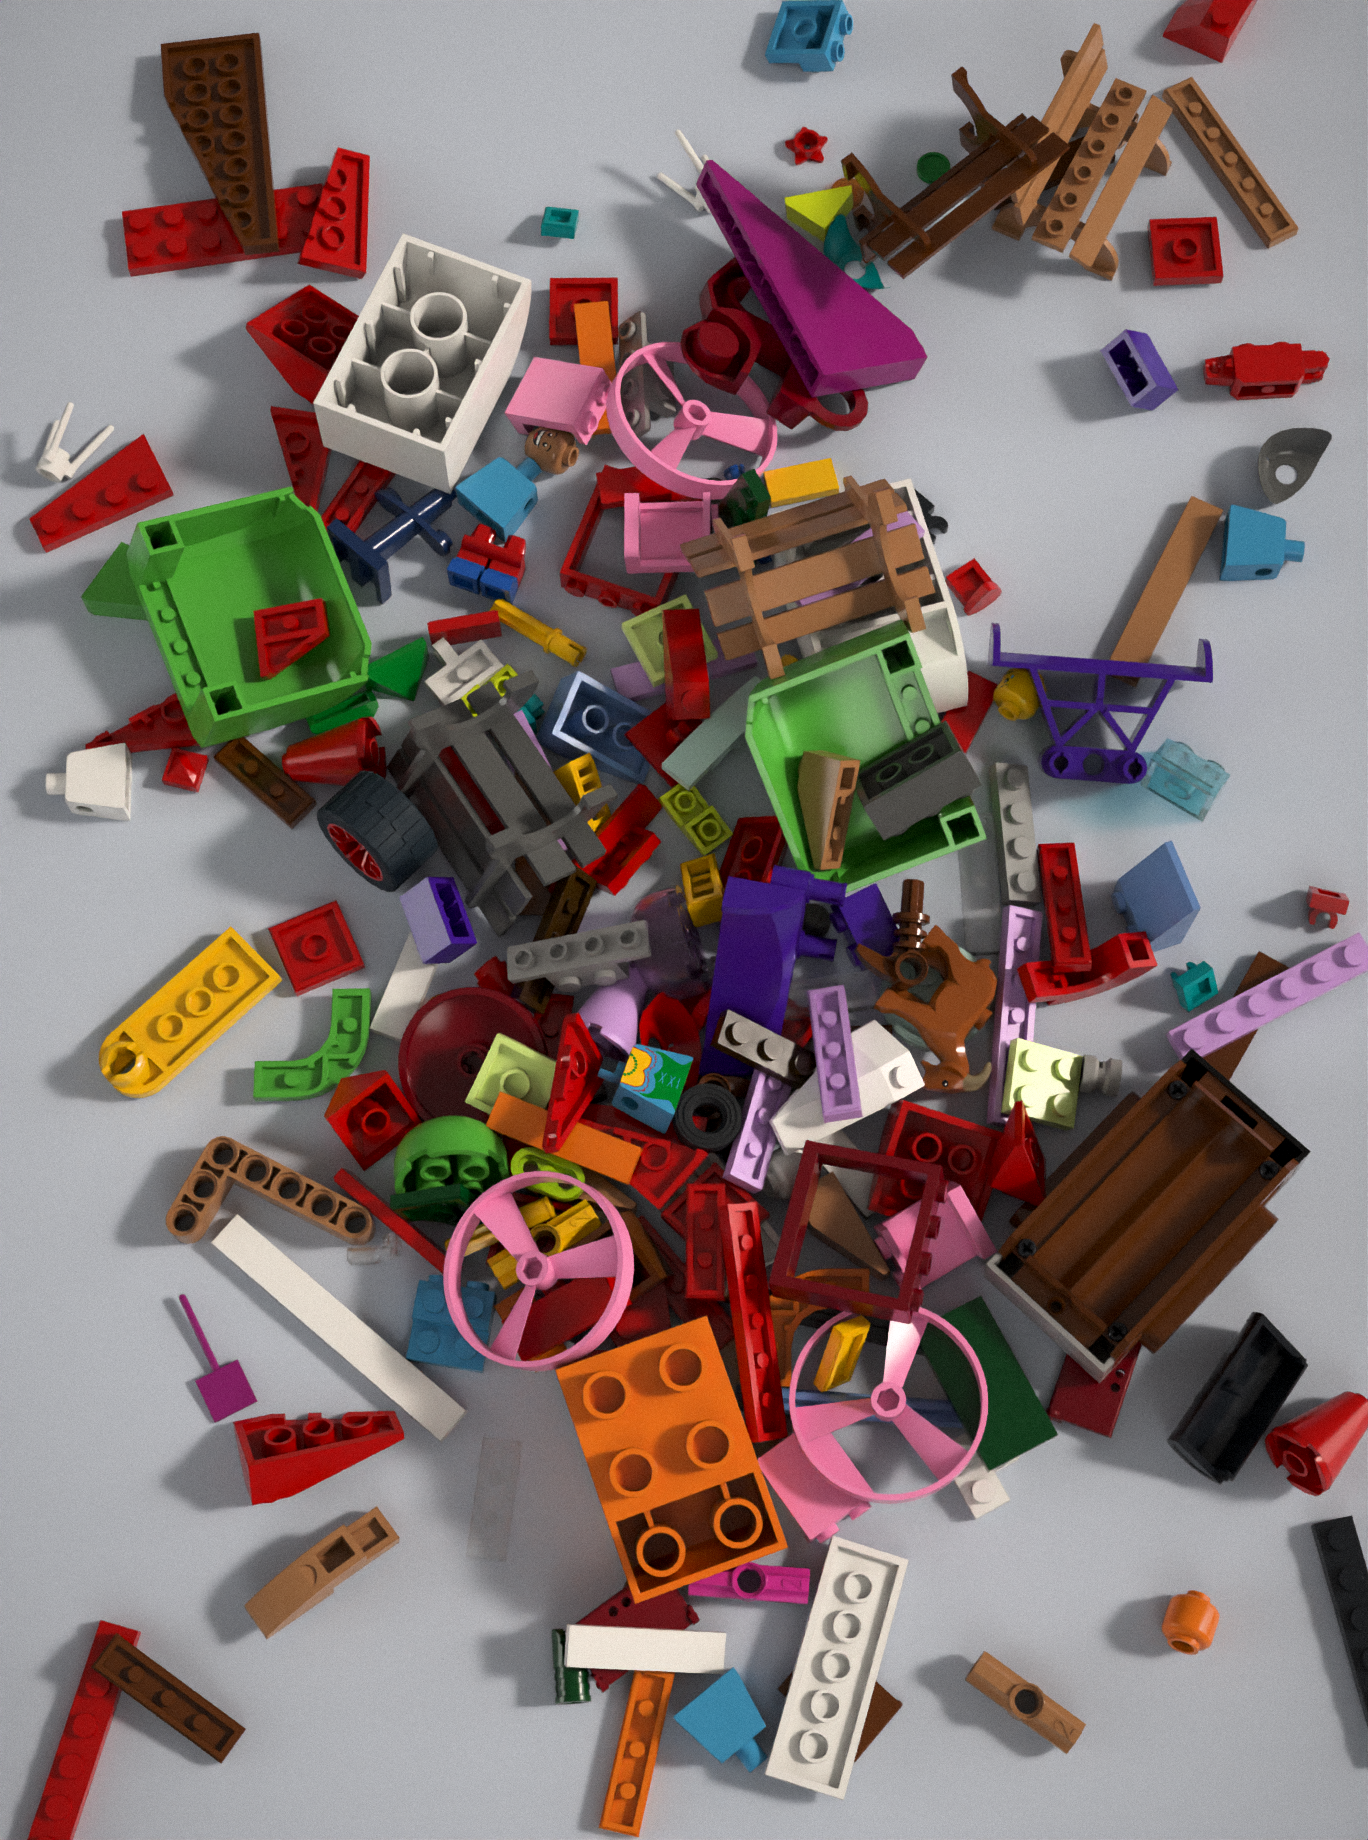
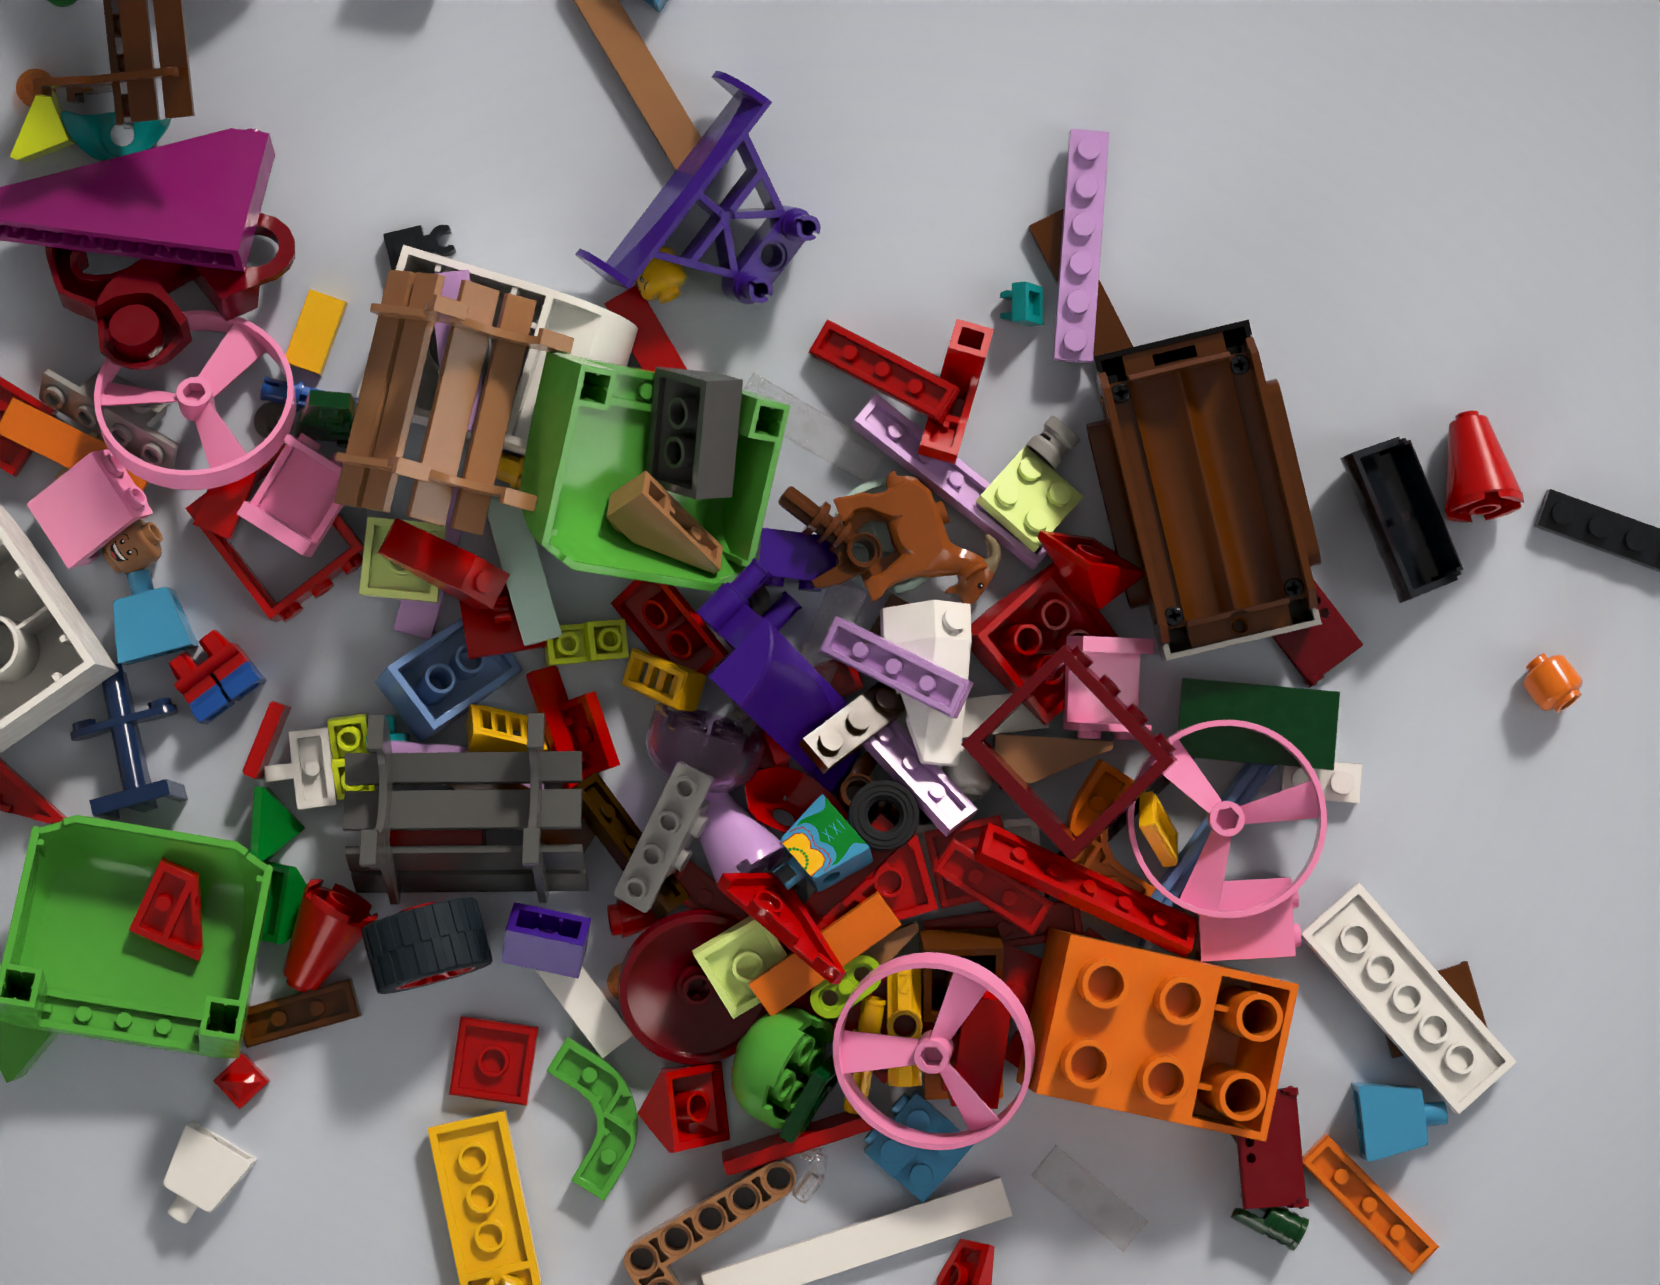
camera: 60 degrees left, 15 degrees up
(151, 729) = (181, 1091): red wing -> none
(357, 495) = (65, 766): red tile -> none
(550, 639) = (312, 673): yellow axle -> none
(644, 1649) = (1296, 1150): white tile -> none
(776, 1582) = (1311, 1006): dark pink piece -> none
(973, 587) = (523, 243): red tile -> none
(1014, 835) = (786, 367): light grey plate -> none
(1046, 1719) = (1552, 852): medium nougat piece -> none
(1157, 898) = (934, 290): medium blue slope -> none
(1185, 778) = (834, 178): clear light blue slope -> none
(1326, 901) = (1024, 135): red tile -> none

